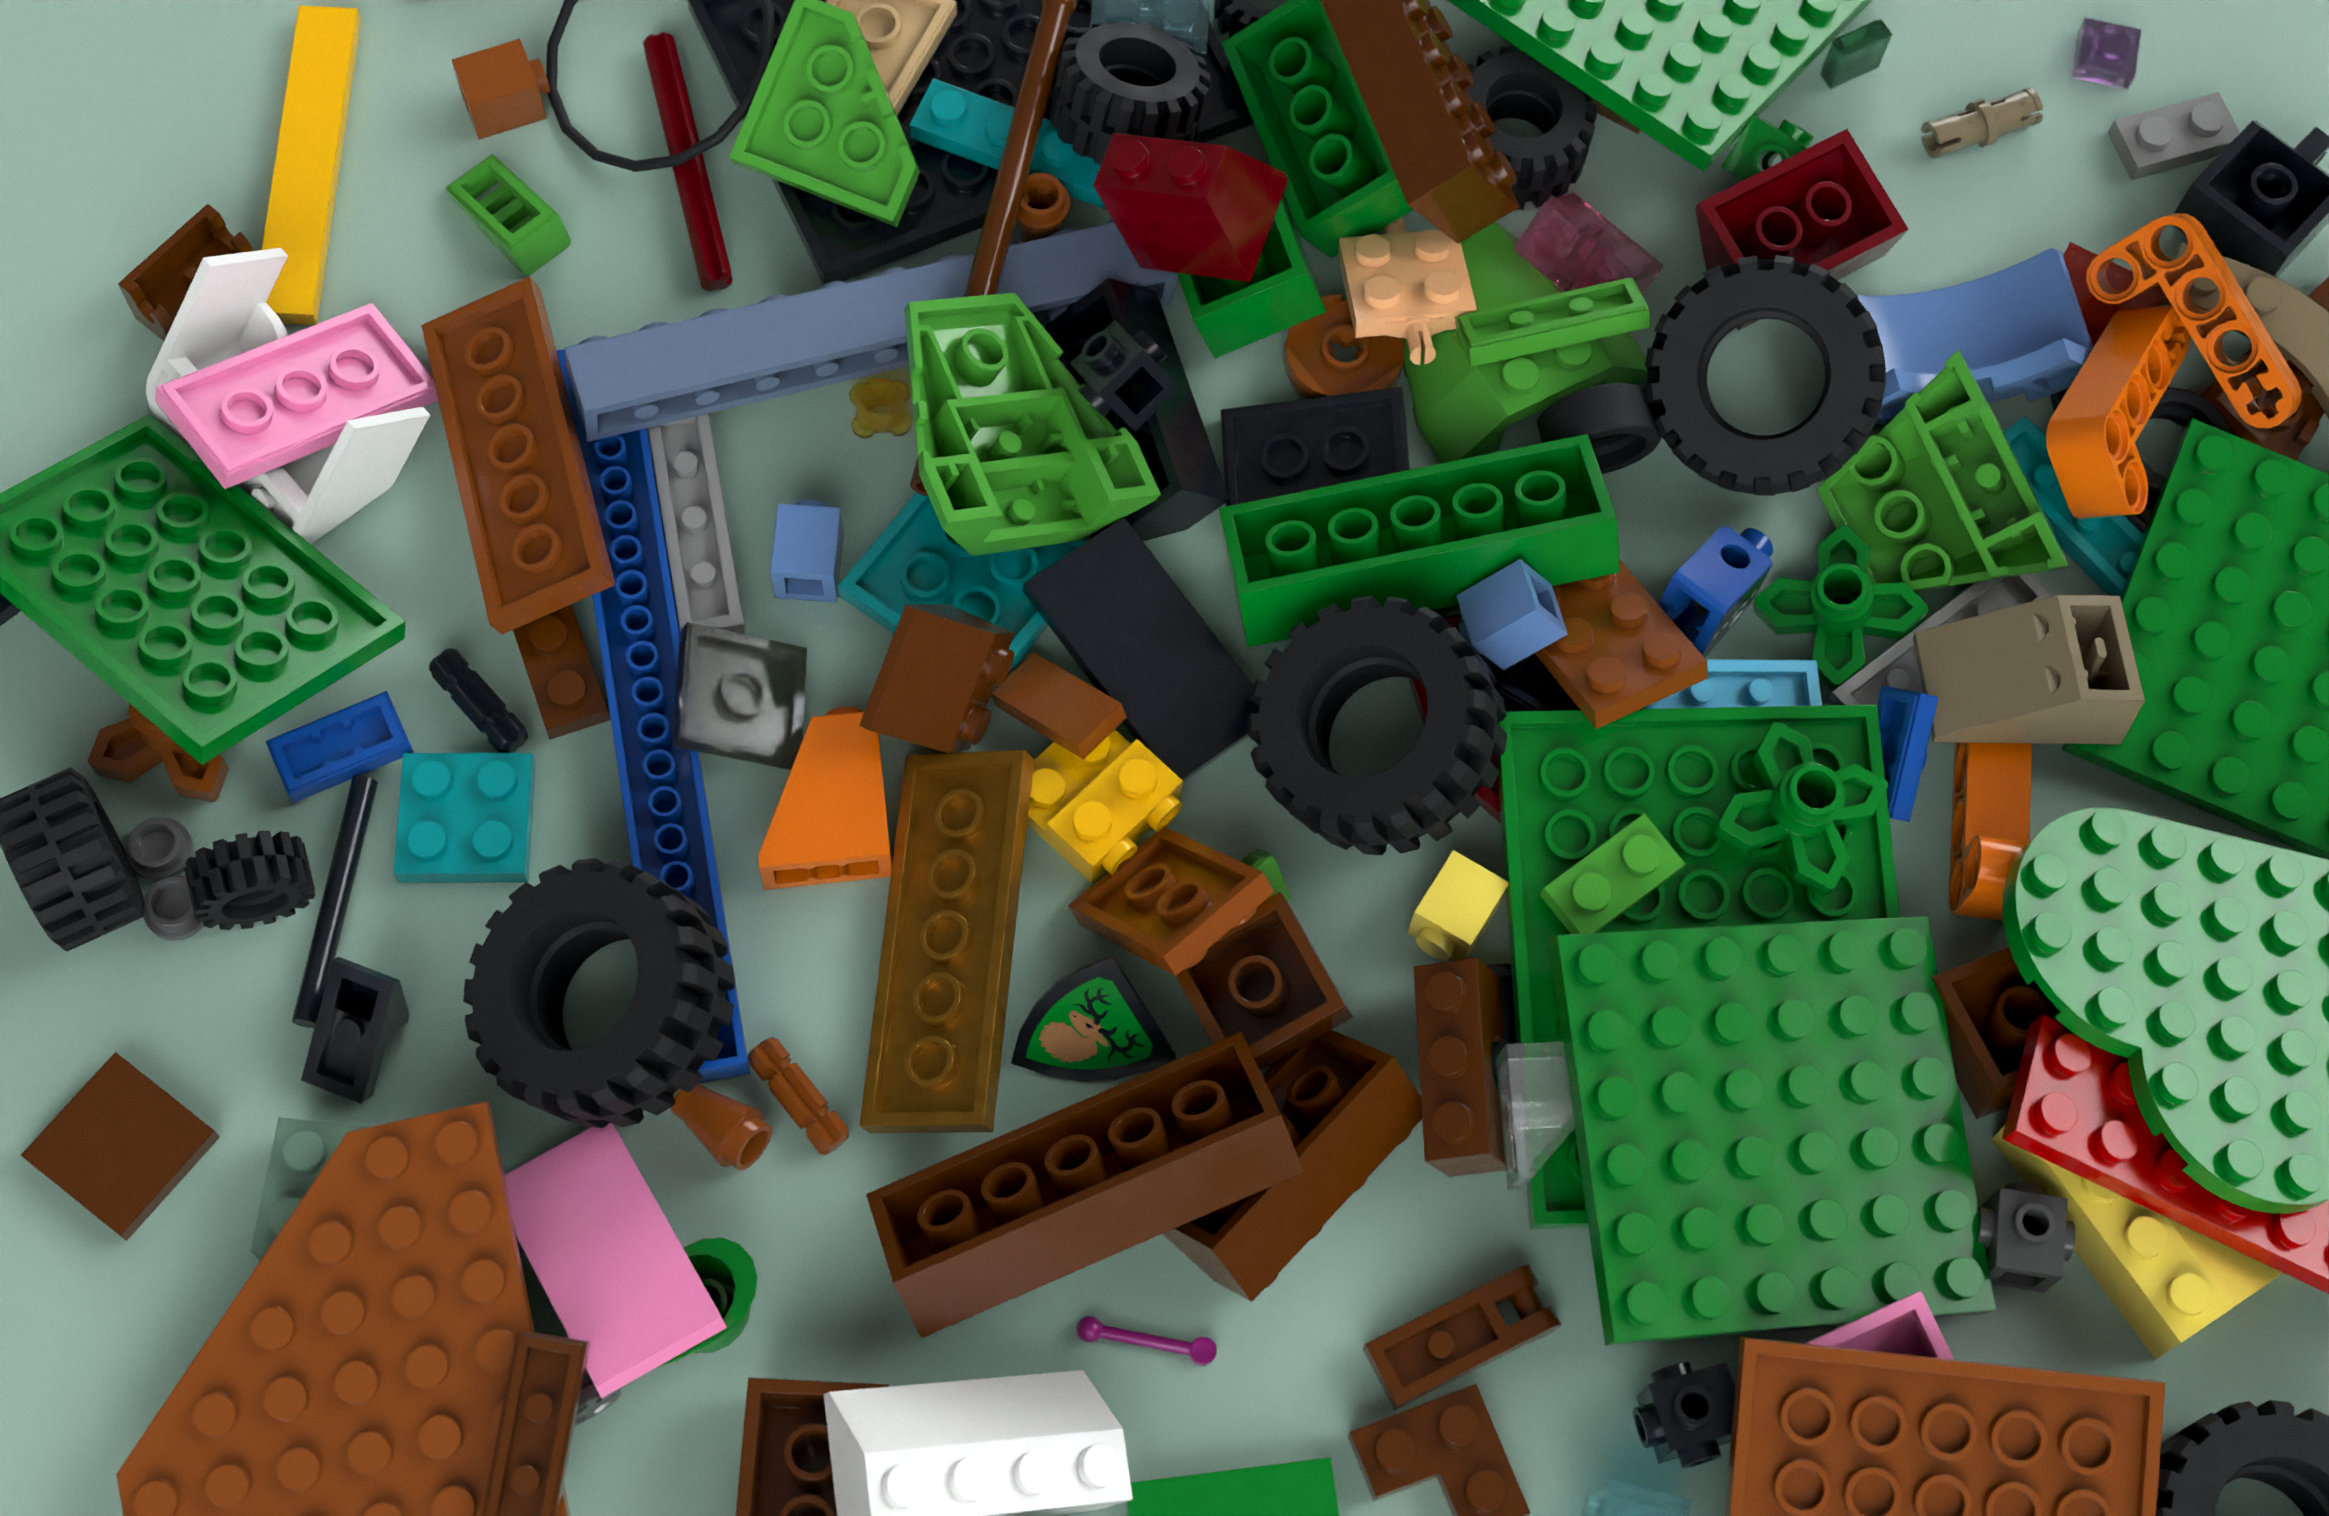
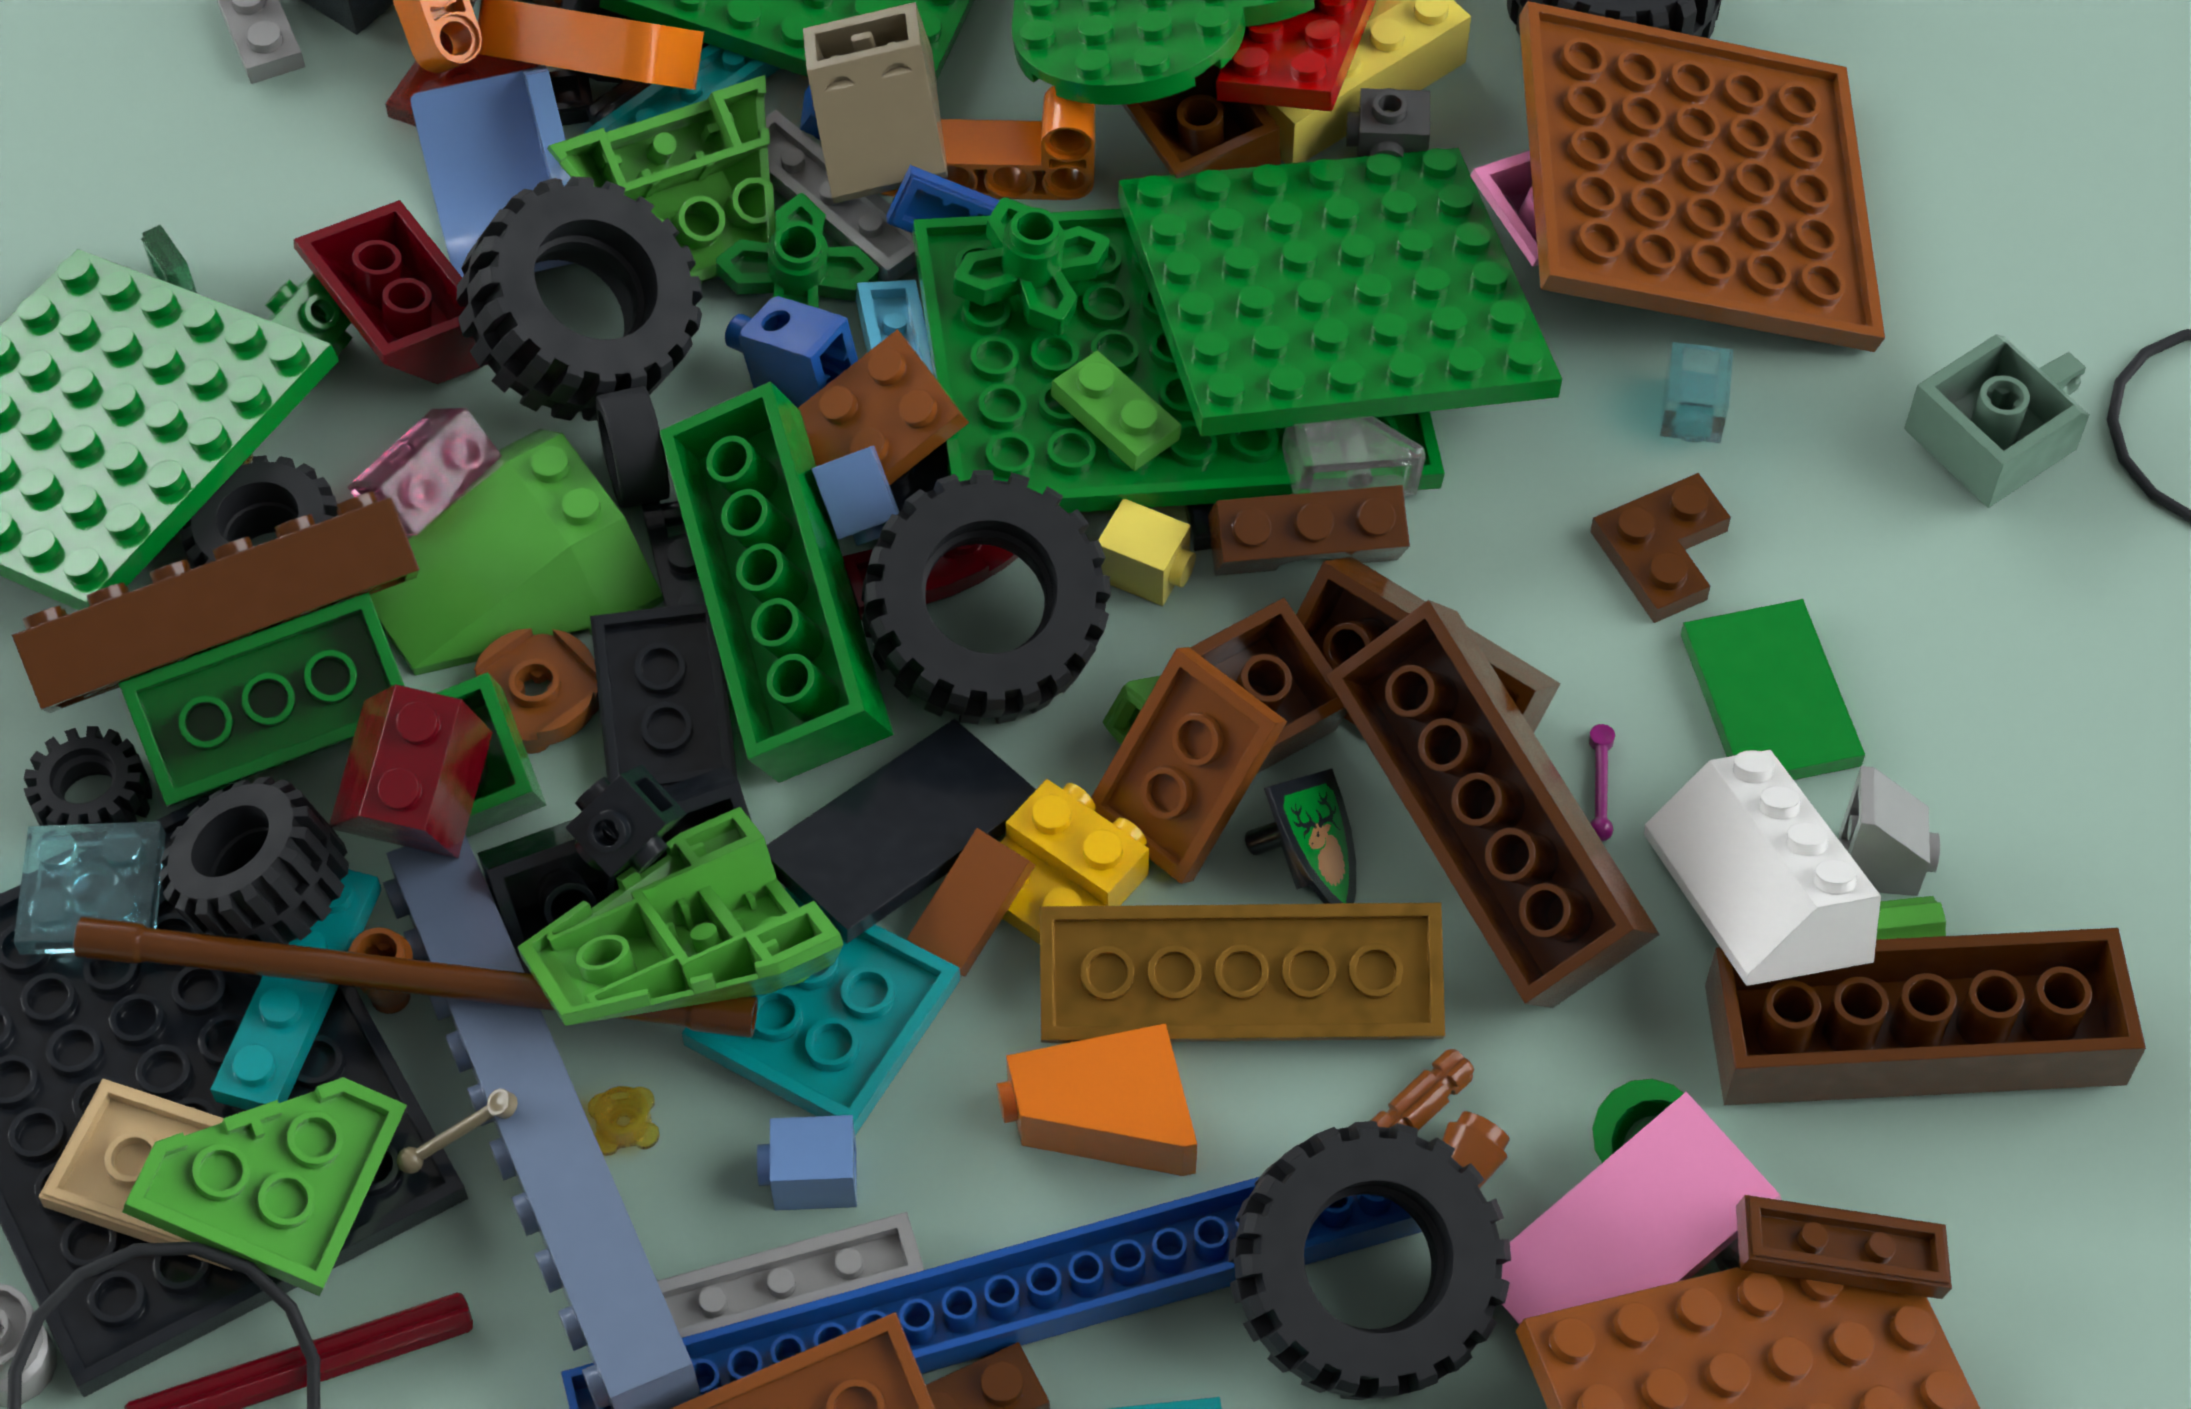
camera: 90 degrees left, 10 degrees down
(739, 696) = (994, 1202): clear smoke tile -> none
(863, 279) = (499, 1104): none -> dark tan hinge
(939, 678) = (966, 993): reddish brown slope -> none
(1405, 285) = (466, 620): light nougat plate -> none
(1459, 1337) = (1553, 532): reddish brown plate -> none
(1552, 321) = (522, 478): bright green tile -> none
(1700, 1394) = (1593, 352): black brick -> none
(1981, 122) = (248, 171): dark tan pin -> none
(2106, 53) = (163, 79): clear purple plate -> none

